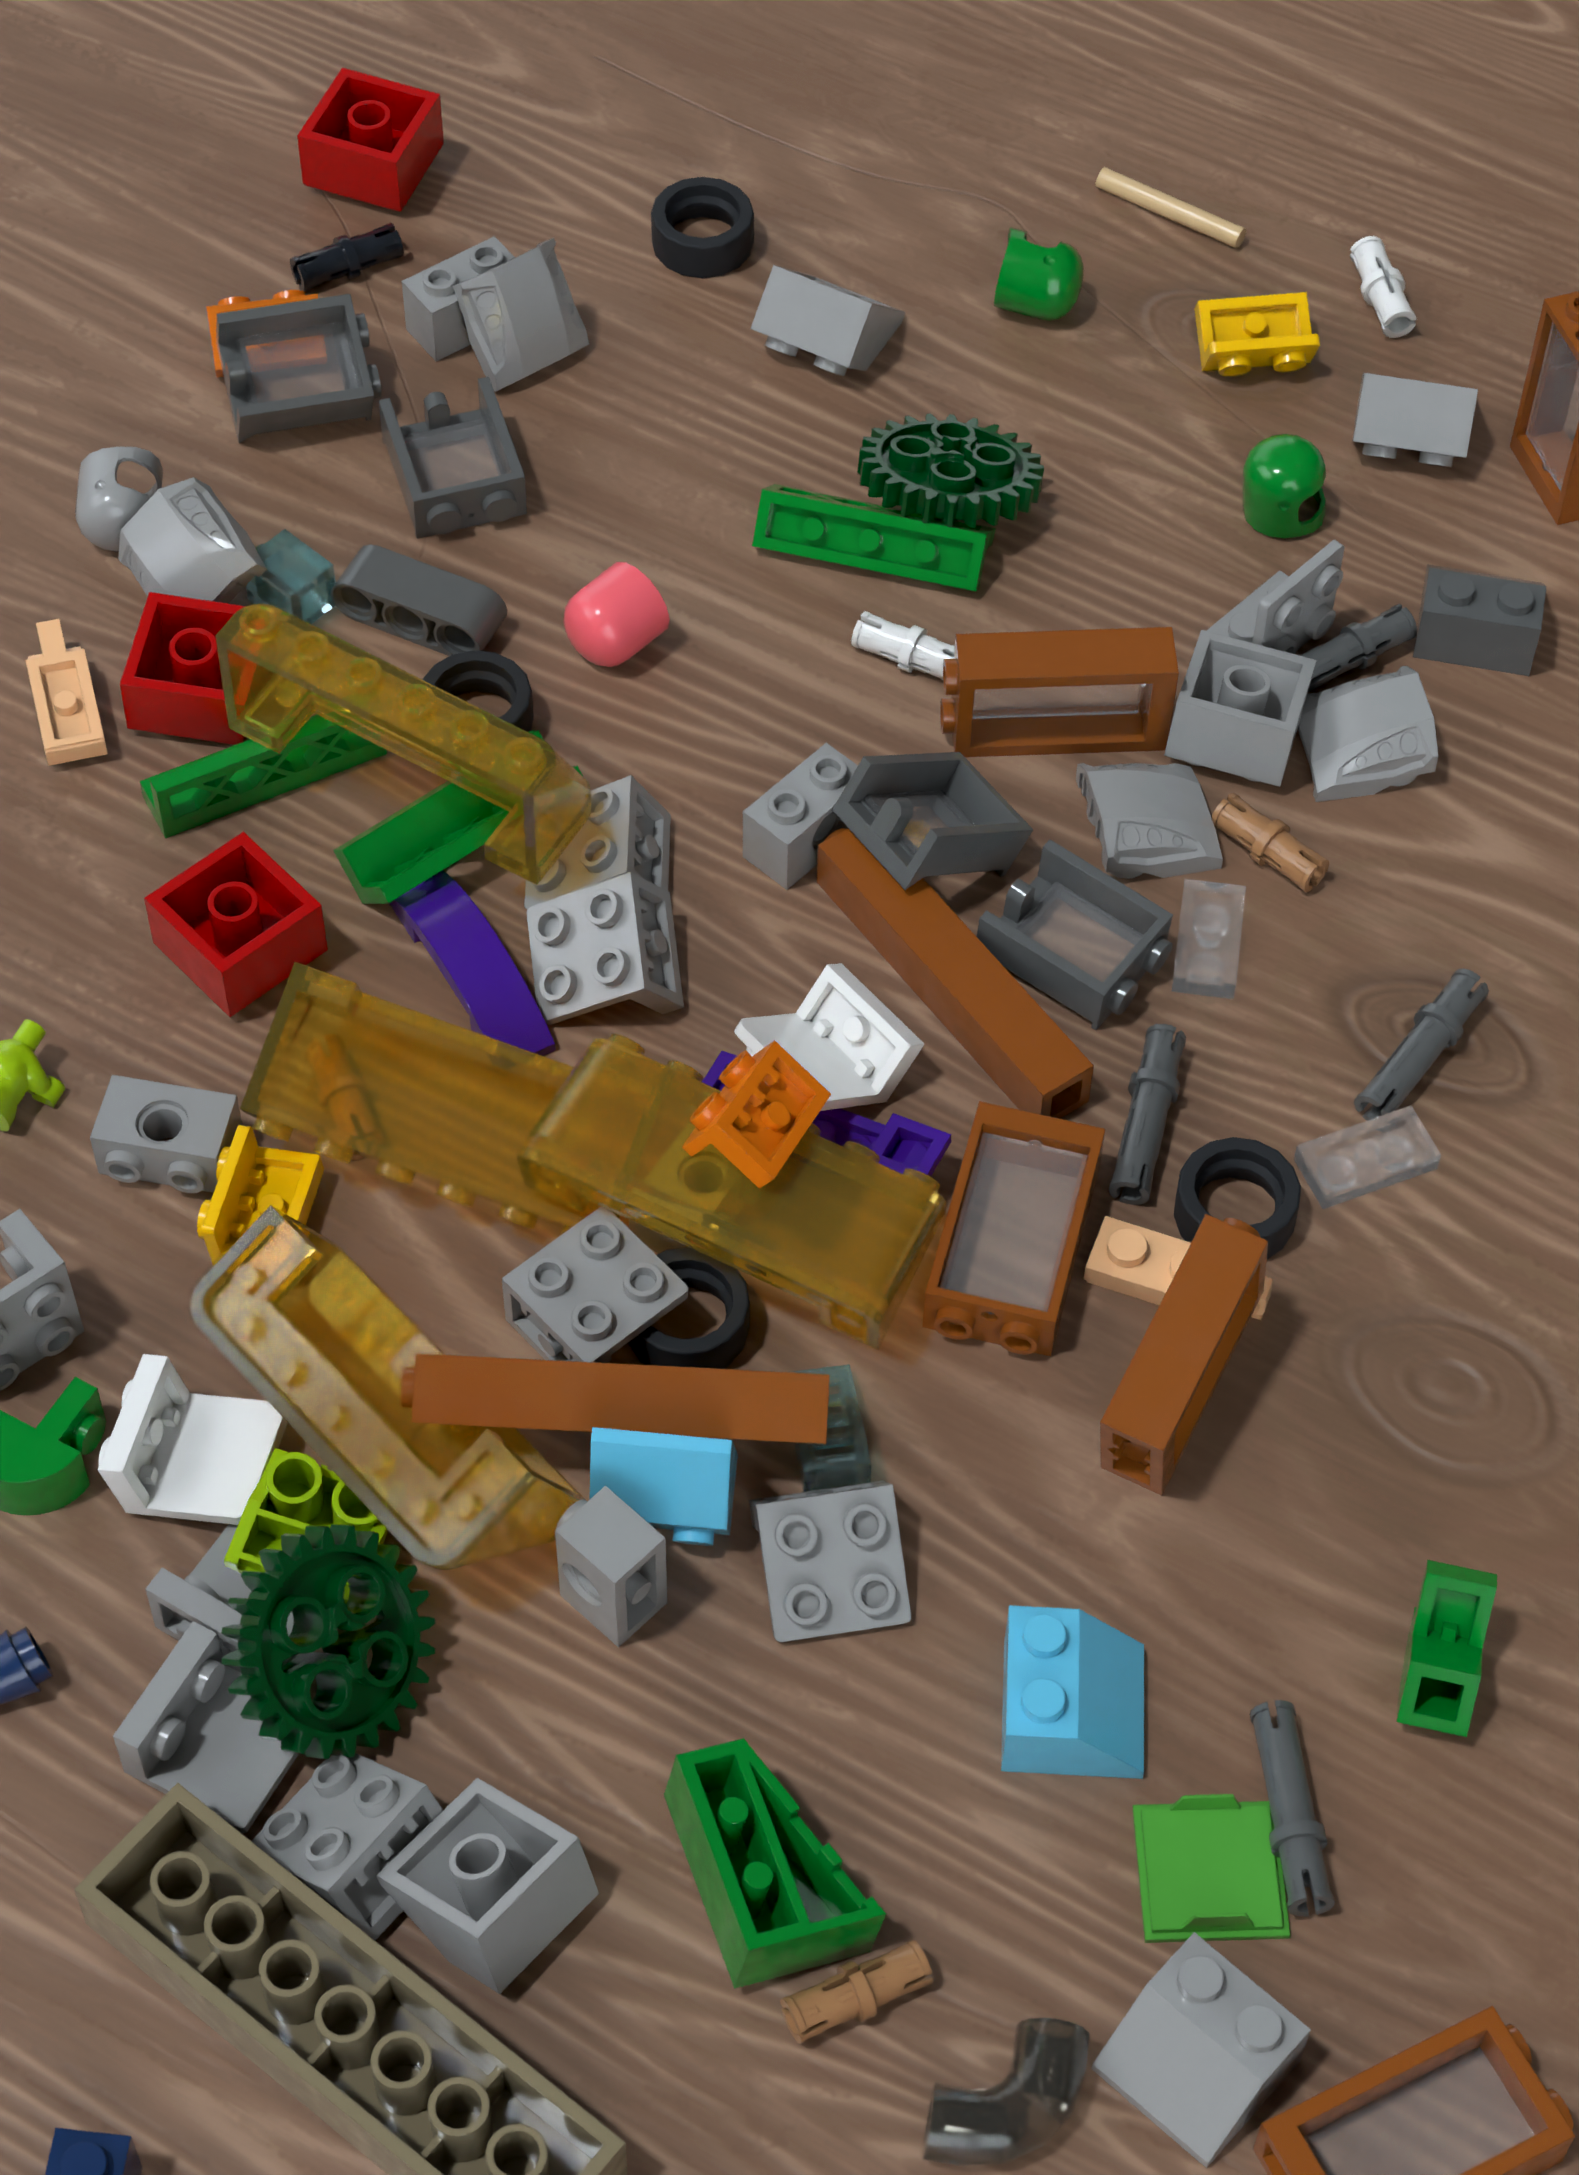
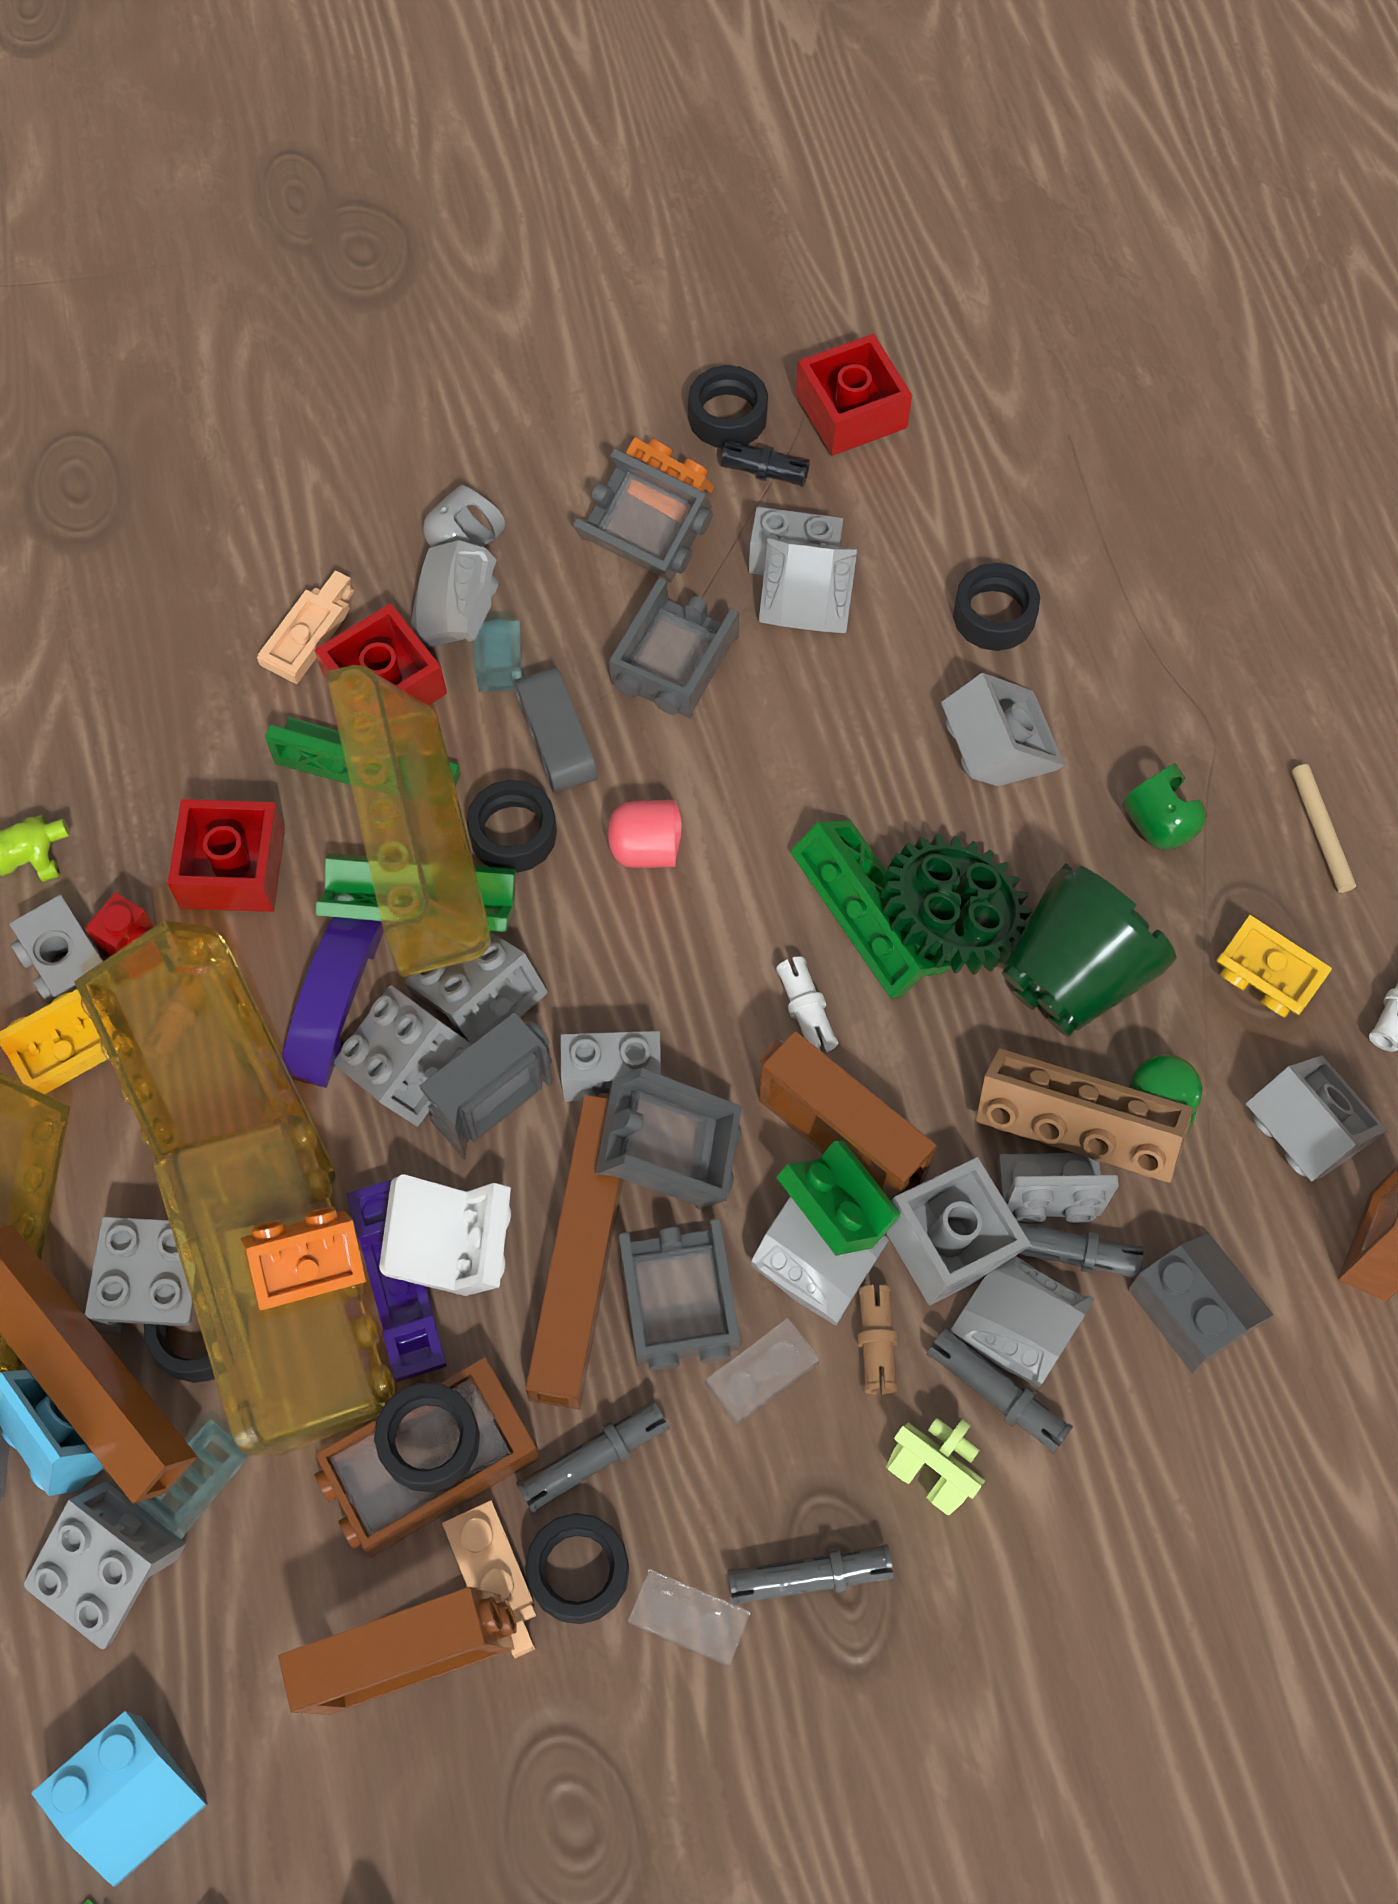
camera: 45 degrees right, 10 degrees up
(208, 1059) = (117, 925): none -> red brick
(249, 205) = (727, 381): none -> black tyre
(722, 904) = (488, 1081): none -> dark grey window
(1016, 1144) = (399, 1406): none -> black tyre
(1105, 411) = (1084, 951): none -> dark green cone
(1132, 739) = (840, 1199): none -> green bracket
(1244, 538) = (1084, 1115): none -> medium nougat brick
(1419, 872) = (916, 1448): none -> yellowish green hips
(1429, 796) = (1000, 1391): none -> dark grey pin

